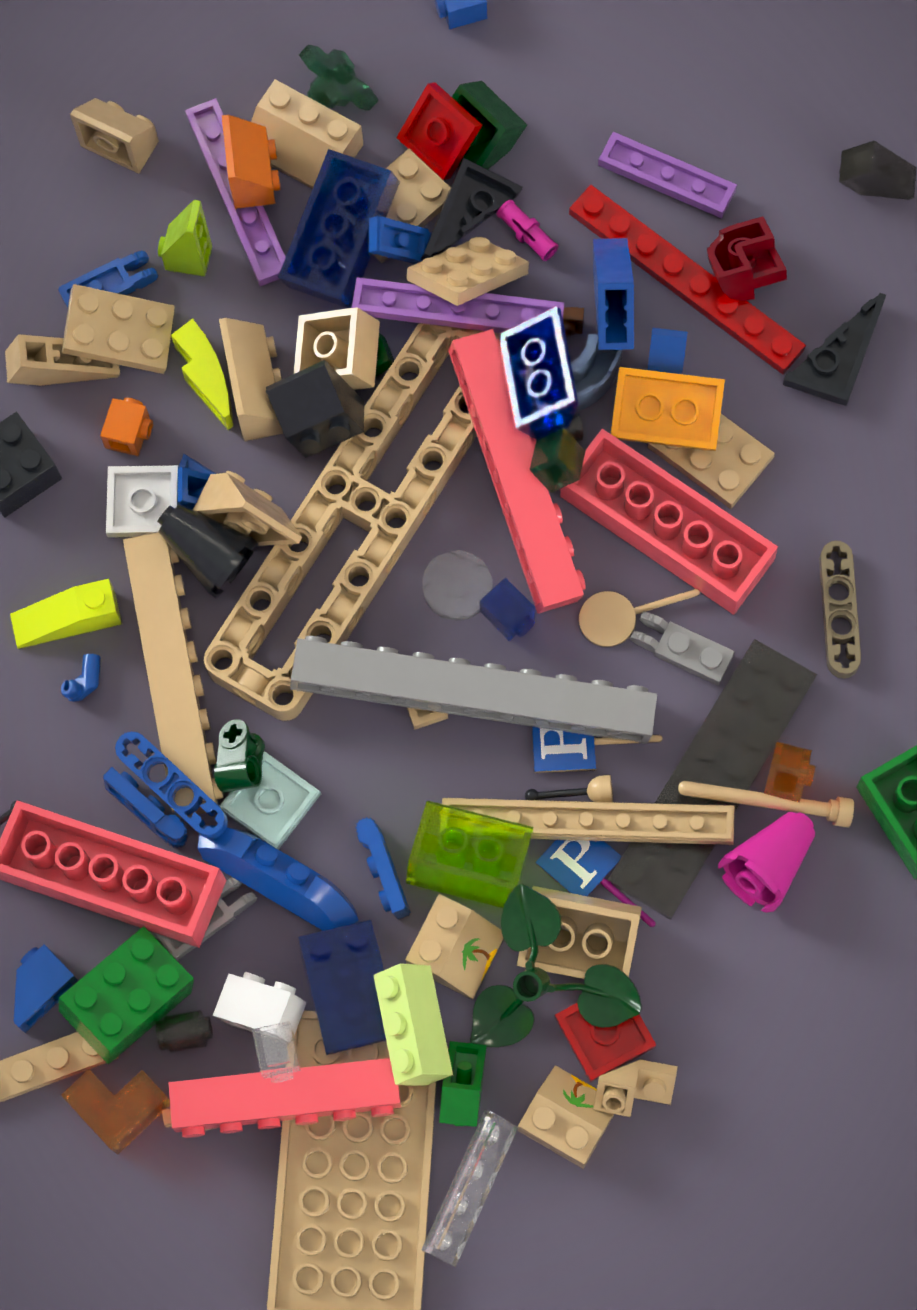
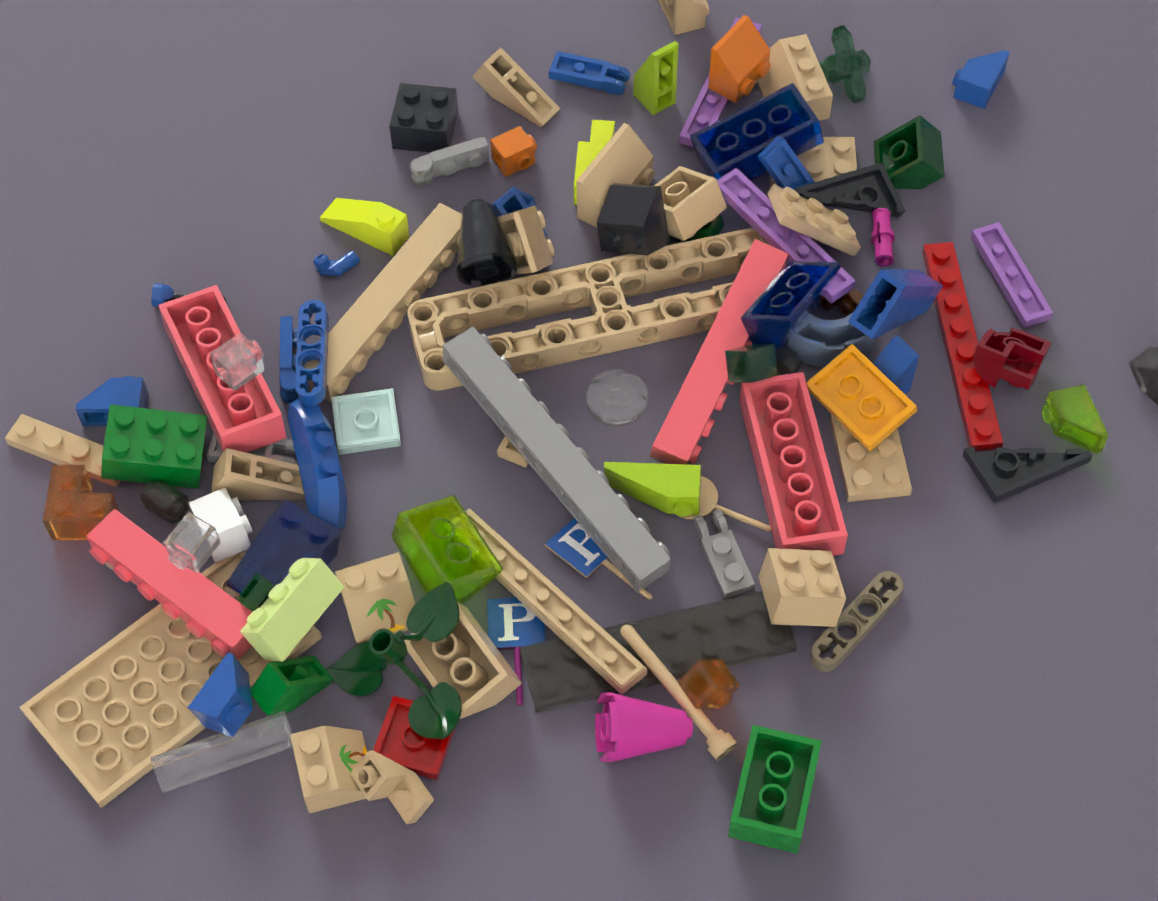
camera: 40 degrees right, 15 degrees down
(77, 489) = (449, 160): none -> light grey hinge
(118, 329) = (565, 96): tan plate -> none
(132, 856) = (238, 361): none -> clear brick
(139, 498) = (474, 184): white plate -> none
(238, 757) = (370, 376): dark green piece -> none
(239, 939) = (256, 477): none -> tan slope
(366, 1040) = (255, 592): none -> dark green plate
(382, 866) = (379, 531): blue hinge -> none
(435, 1147) = (224, 698): none -> blue slope
(439, 130) = (882, 135): red plate -> none
(508, 610) = (630, 432): clear blue brick -> none
(582, 634) = (662, 486): none -> lime slope
(598, 791) = (574, 588): hinge -> none
(782, 623) = (802, 587): none -> tan brick
(842, 270) = (1075, 418): none -> clear neon green slope

